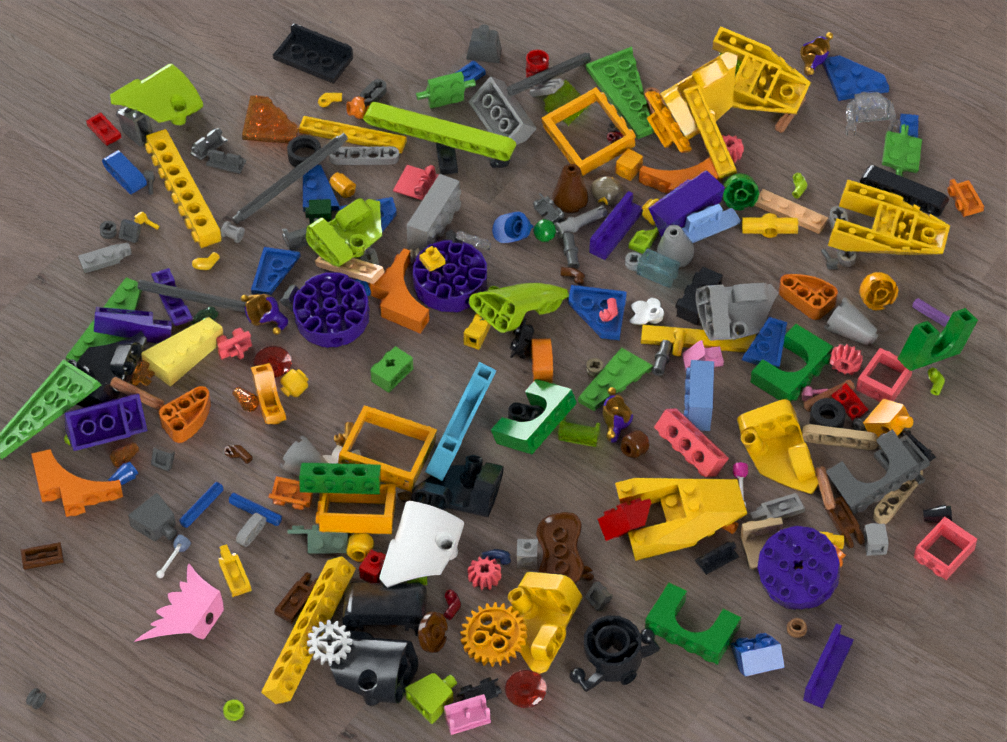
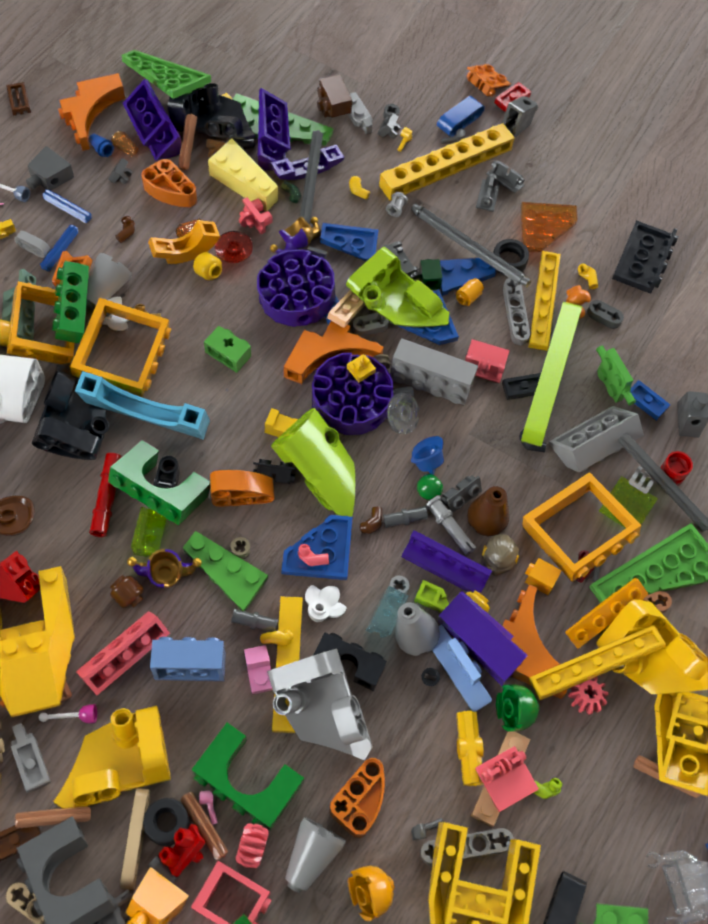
camera: 80 degrees right, 10 degrees up
(75, 146) = (486, 78): none -> orange hinge
(97, 263) = (333, 97): none -> reddish brown brick
(161, 96) = (548, 124): lime panel -> none
(540, 462) = (105, 499): none -> red piece
(714, 240) = (433, 672): none -> black hinge
(768, 343) = (277, 746): blue wing -> none
(794, 201) = (507, 778): none -> coral hinge

